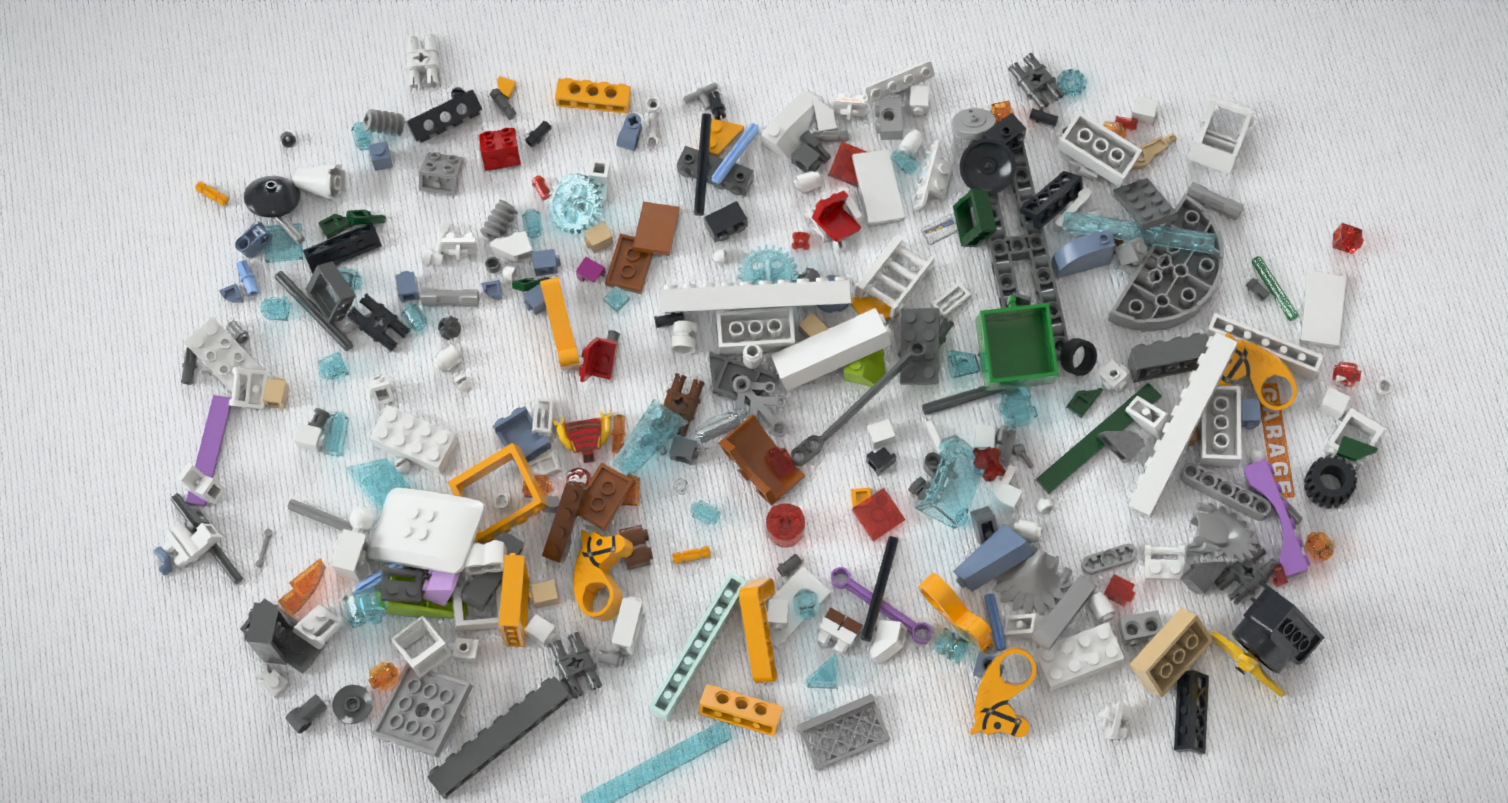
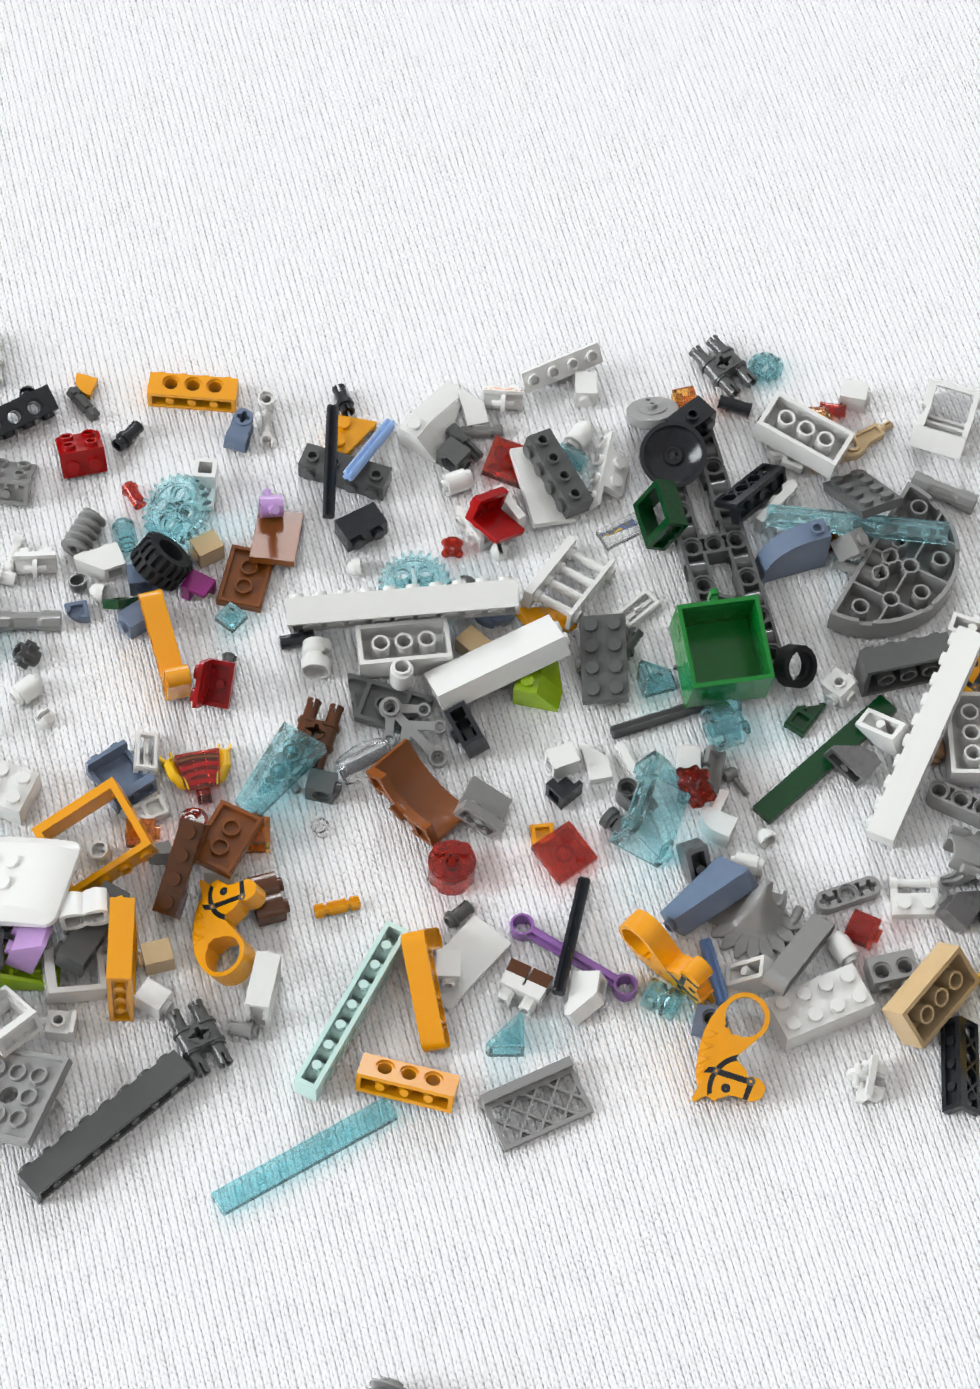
camera: 10 degrees left, 10 degrees down
(560, 250) = (161, 561): none -> black tyre
(618, 433) = (240, 769): clear orange axle -> none
(652, 201) = (271, 505): none -> lavender piece
(701, 93) = (323, 387): light grey piece -> none
(705, 512) = (351, 856): clear light blue brick -> none
(780, 461) = (441, 794): clear red bracket -> none
(803, 405) = (466, 730): none -> black brick
(806, 604) = (482, 955): clear light blue head -> none
(813, 474) = (483, 808): none -> light grey bracket
(858, 405) = (592, 668): dark grey piece -> none
(889, 109) = (552, 399): light grey brick -> none
(890, 178) = (557, 473): none -> dark grey brick
(909, 437) = (596, 765): none -> white tile

